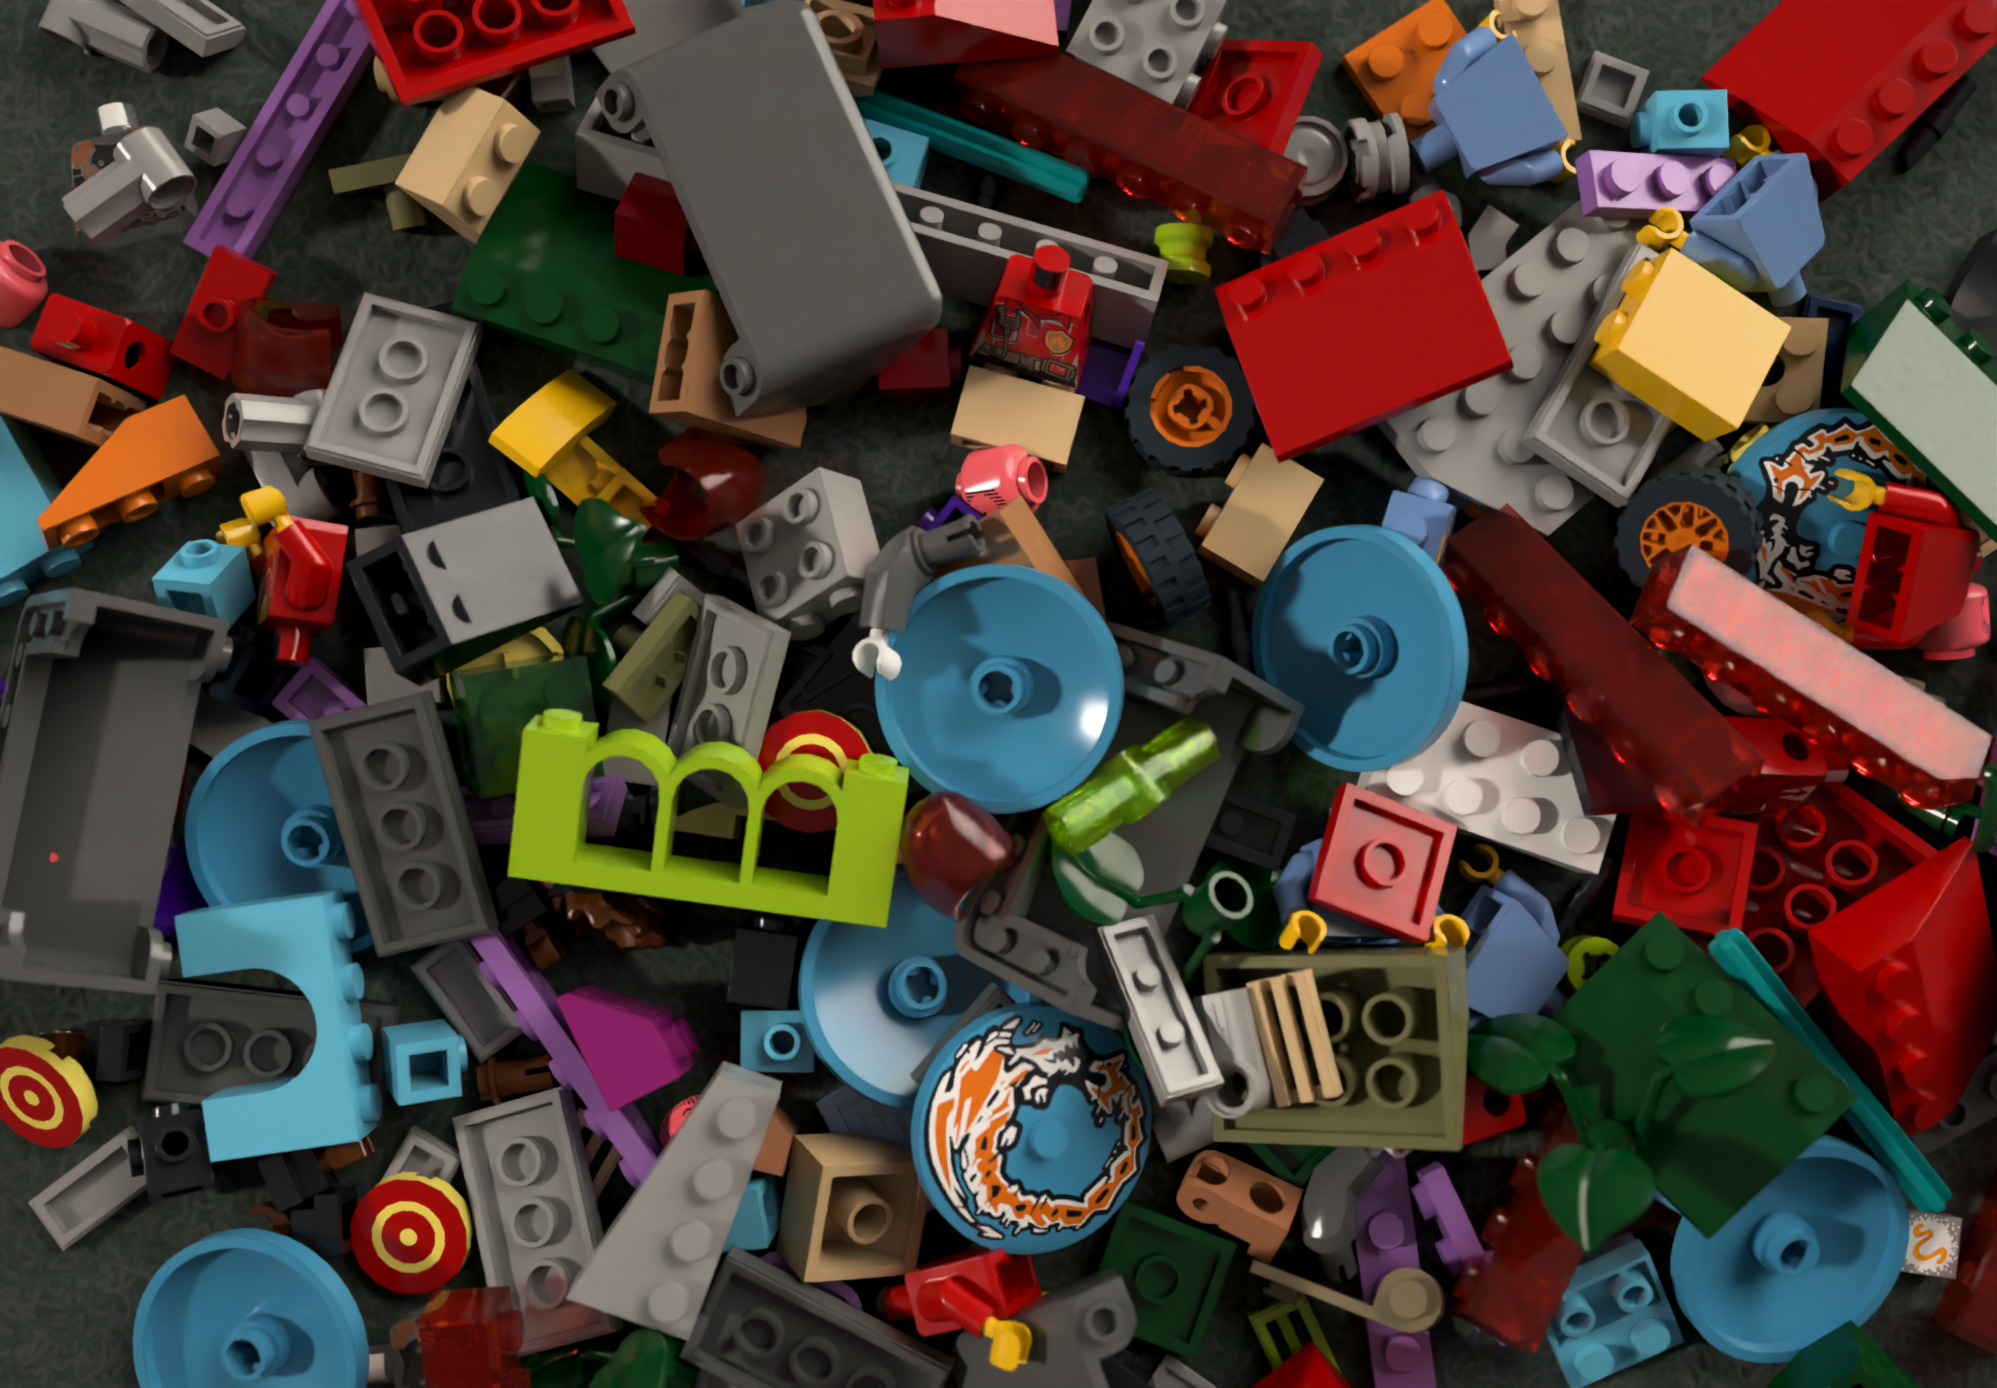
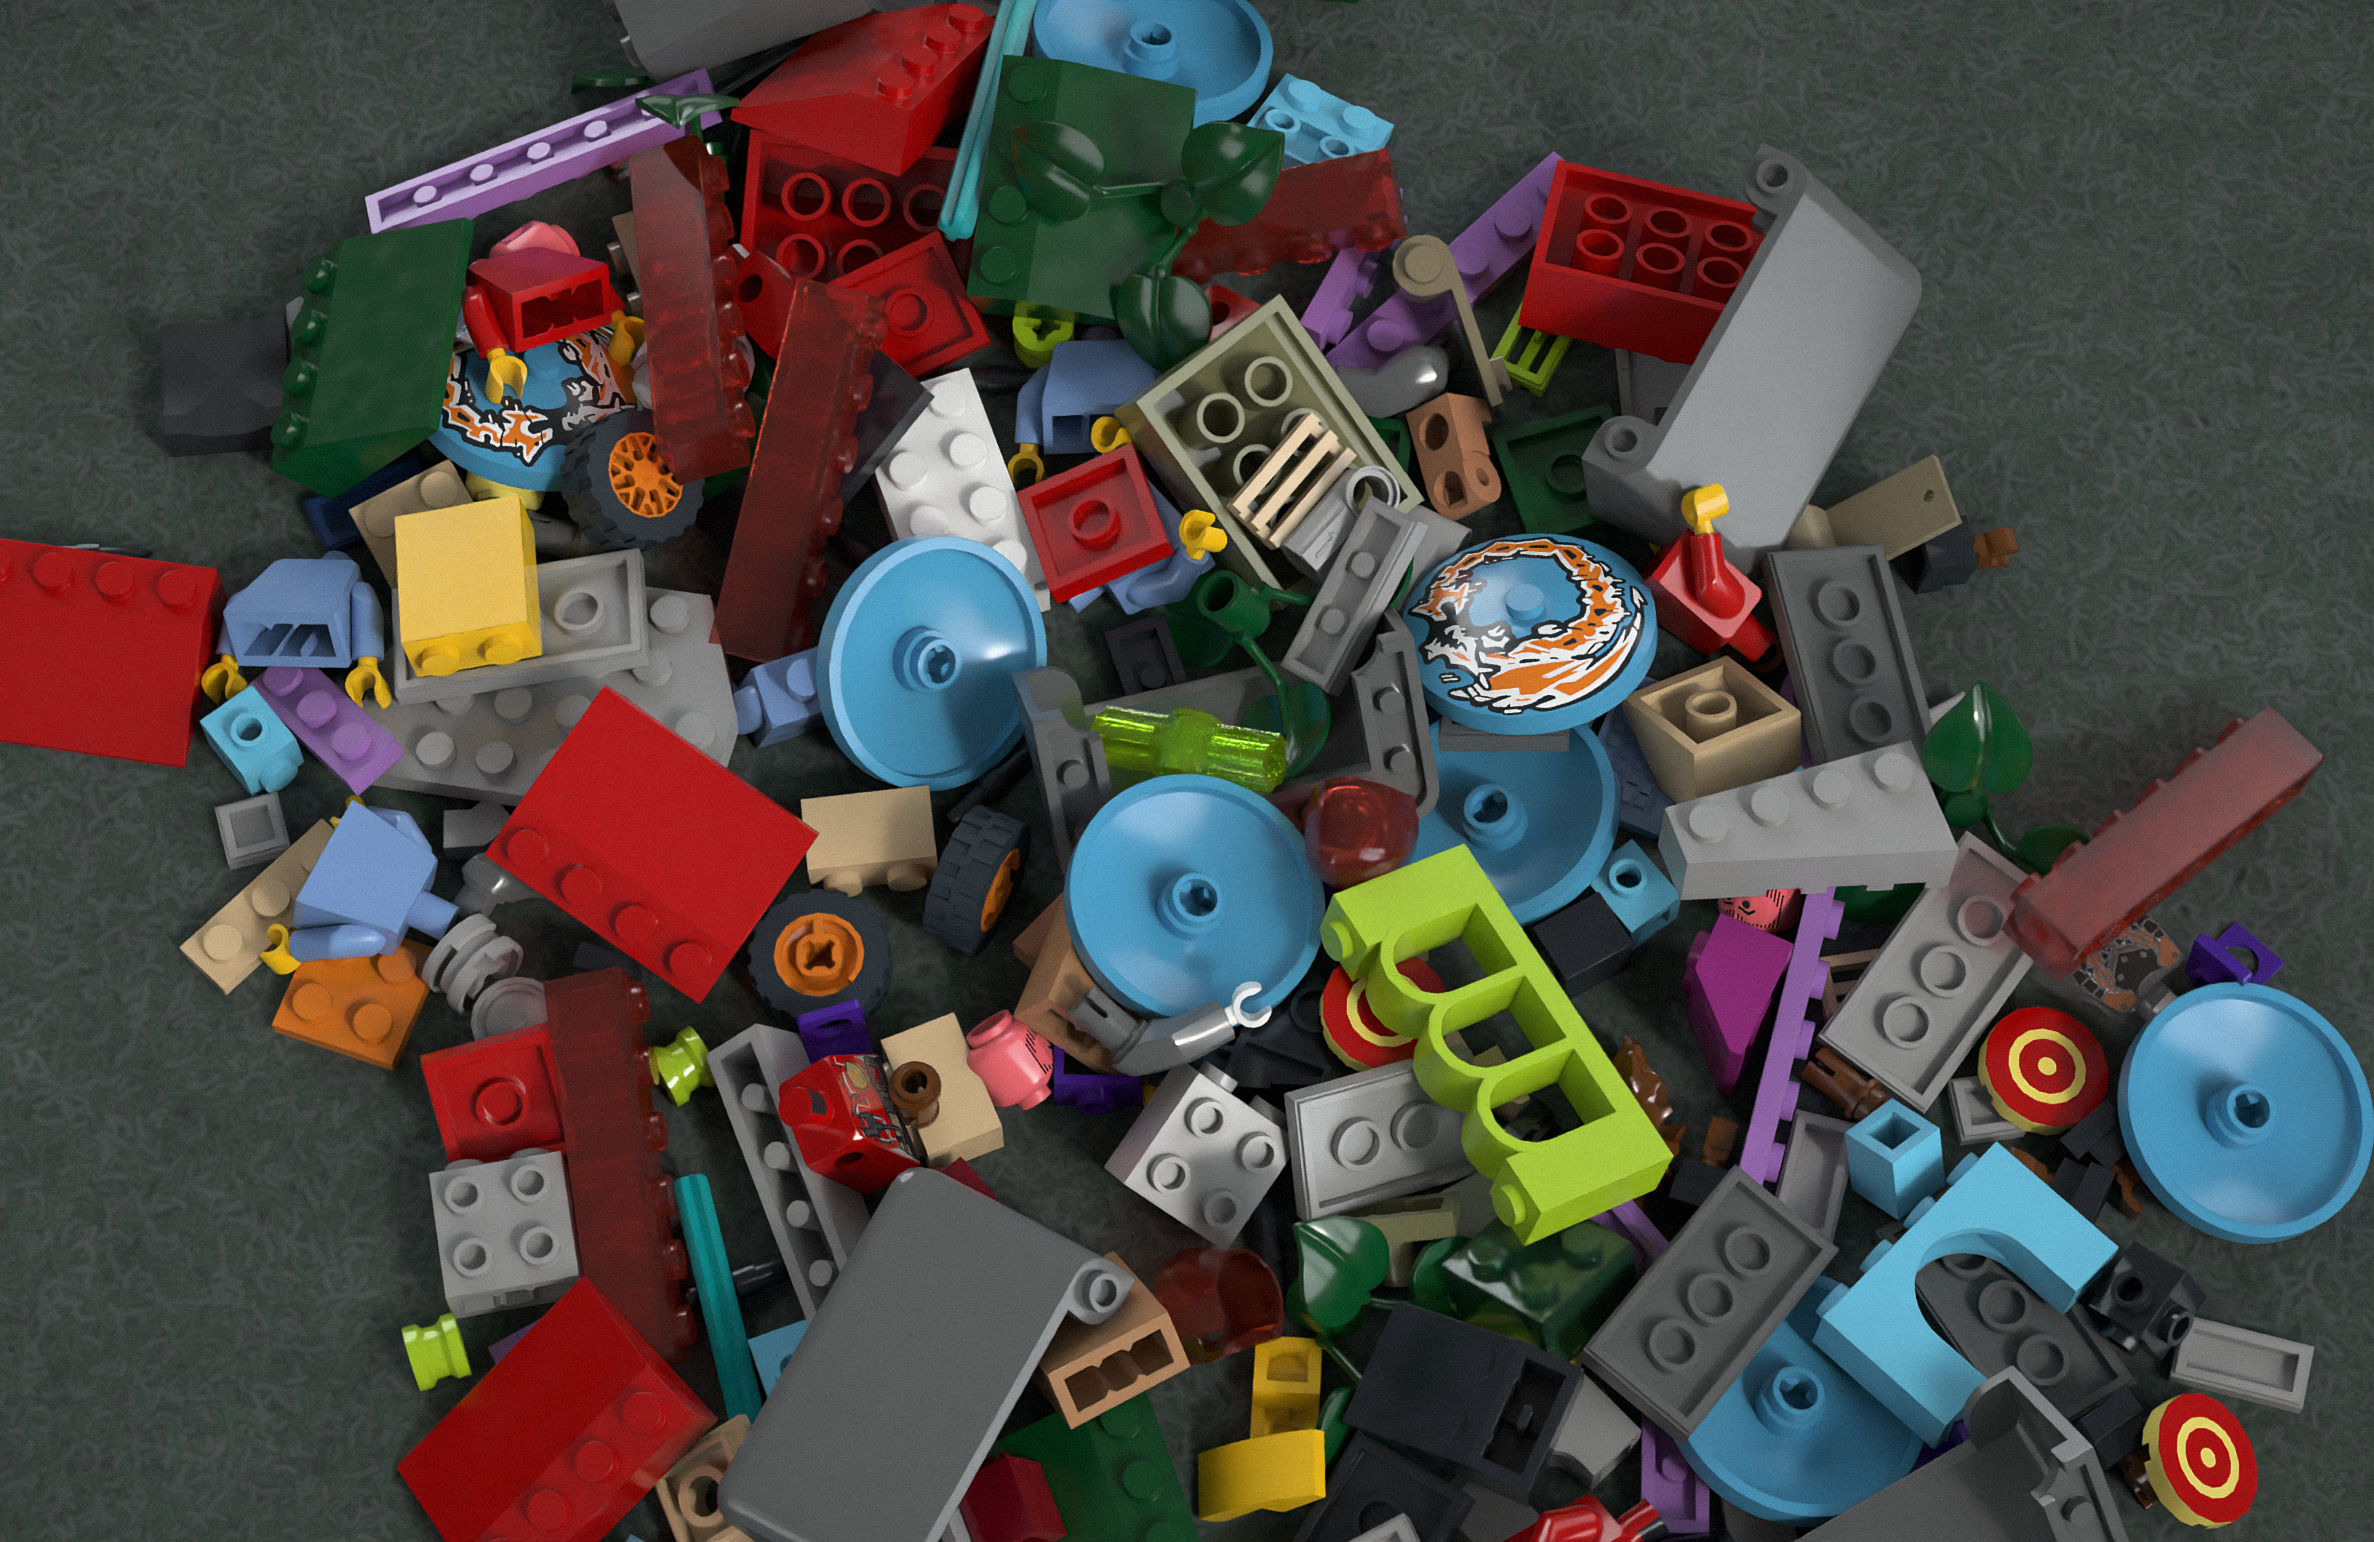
camera: 125 degrees left, 20 degrees down
(1011, 360) = (906, 1093): none -> reddish brown pin

